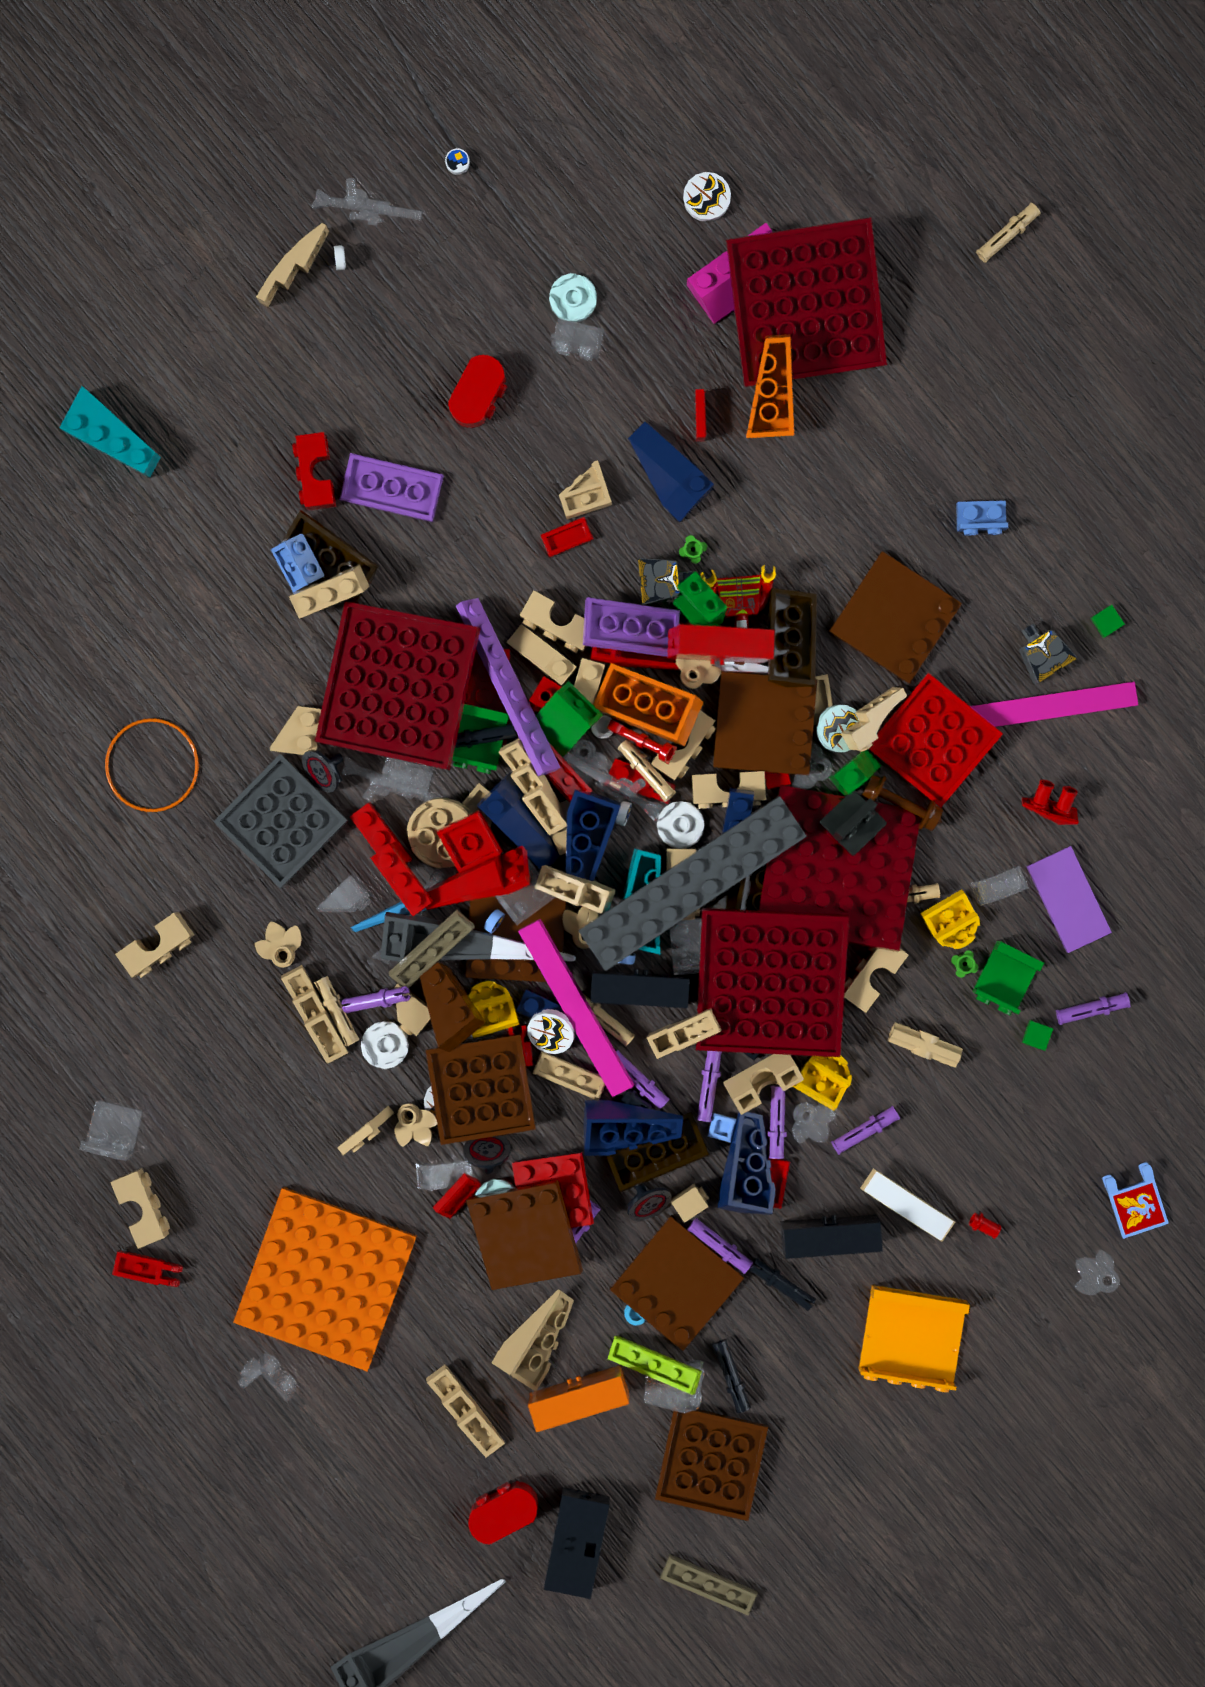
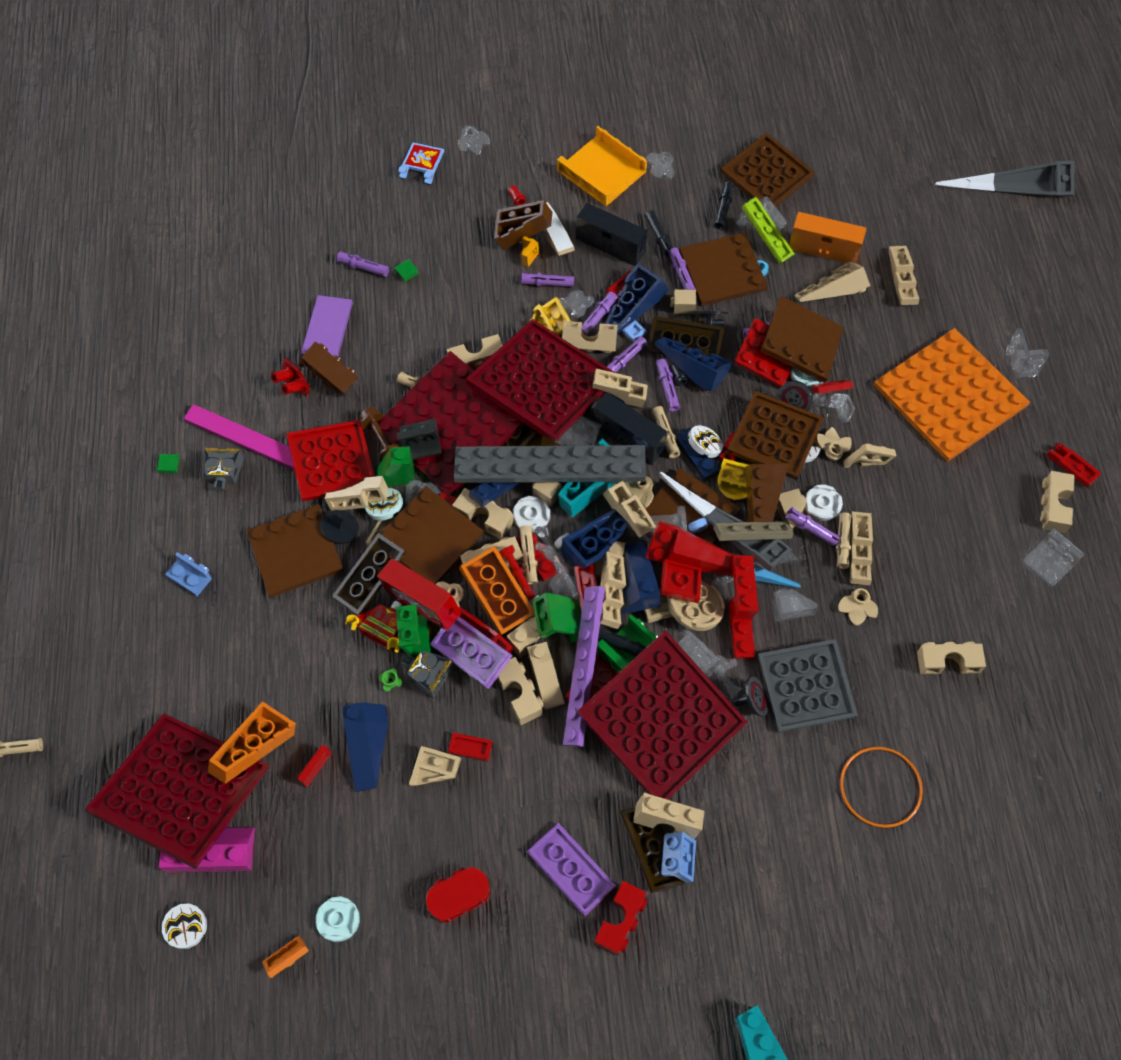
camera: 140 degrees left, 25 degrees down
(299, 732) = (755, 737): tan wing -> none
(503, 1512) = (913, 212): red brick -> none
(545, 687) = (562, 646): red brick -> none
(569, 1075) = (710, 413): tan tile -> none
(576, 1007) = (679, 444): dark pink tile -> none
(577, 339) = (357, 884): clear bracket -> none
(577, 1543) = (877, 174): black brick -> none
(593, 233) = (285, 956): none -> orange plate
(708, 1584) = (811, 120): dark tan tile -> none
(845, 1384) = (661, 164): none -> clear plate
(868, 673) = (339, 526): none -> black shield
(911, 1151) = (529, 251): none -> light orange bracket
(925, 1044) = (476, 302): tan piece -> none
(946, 1180) = (521, 221): none -> reddish brown wedge
(952, 921) = (405, 355): yellow slope -> none
(958, 961) = (417, 326): bright green plate -> none
(999, 885) = (360, 357): clear slope -> none
(1006, 978) = (399, 309): green panel -> none
(1021, 841) = (328, 368): none -> reddish brown wedge

